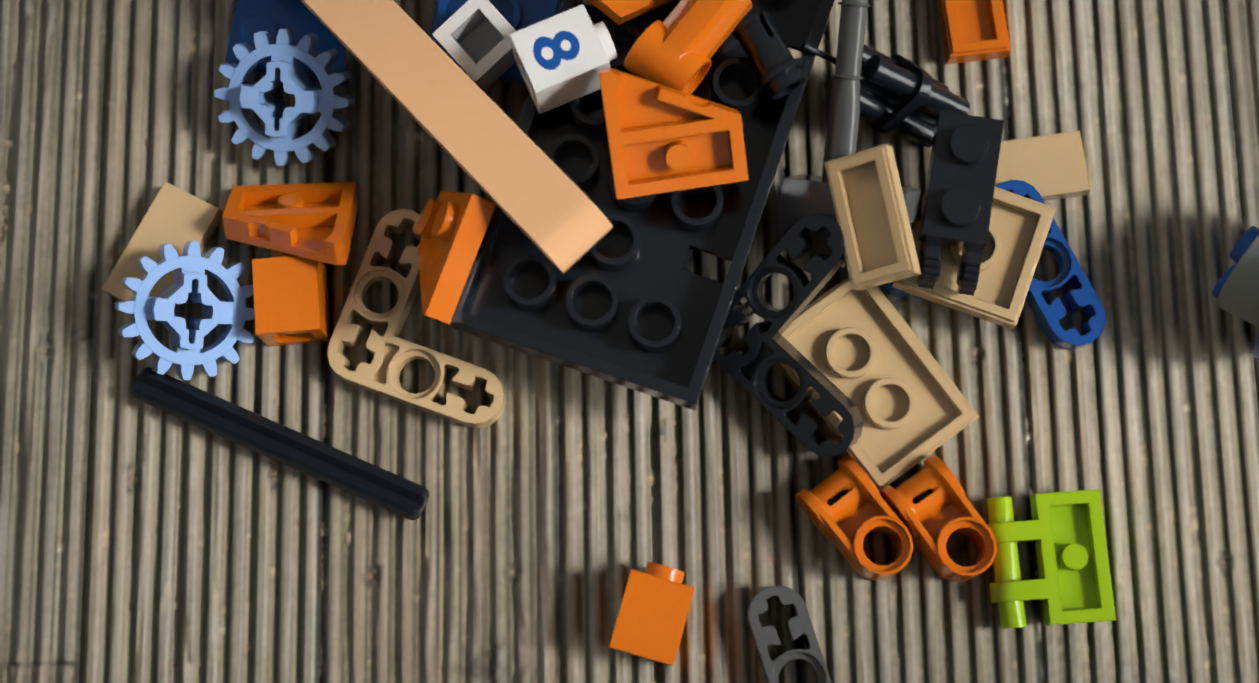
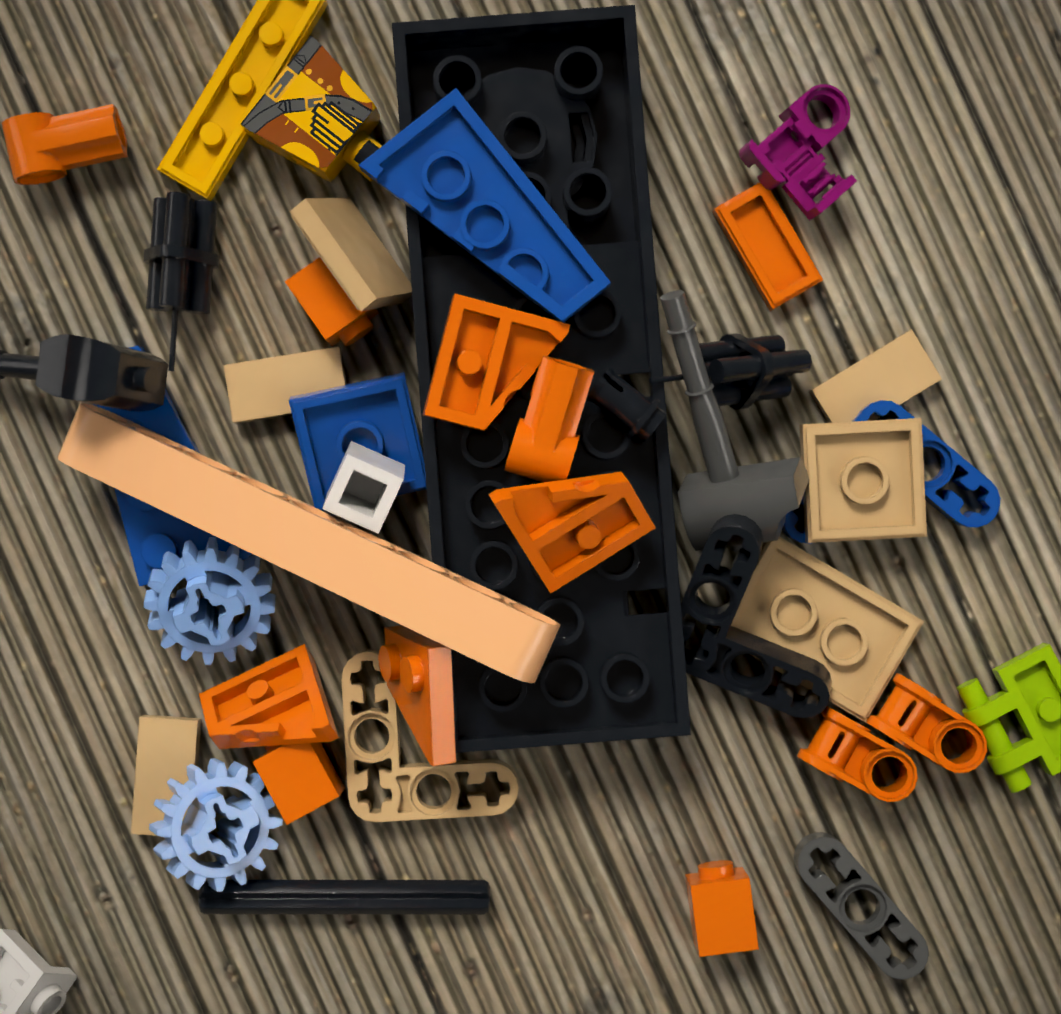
camera: 30 degrees left, 10 degrees up
(562, 57) = (450, 487): white brick -> none
(872, 217) = (773, 509): tan tile -> none
(959, 195) = (835, 447): black hinge -> none

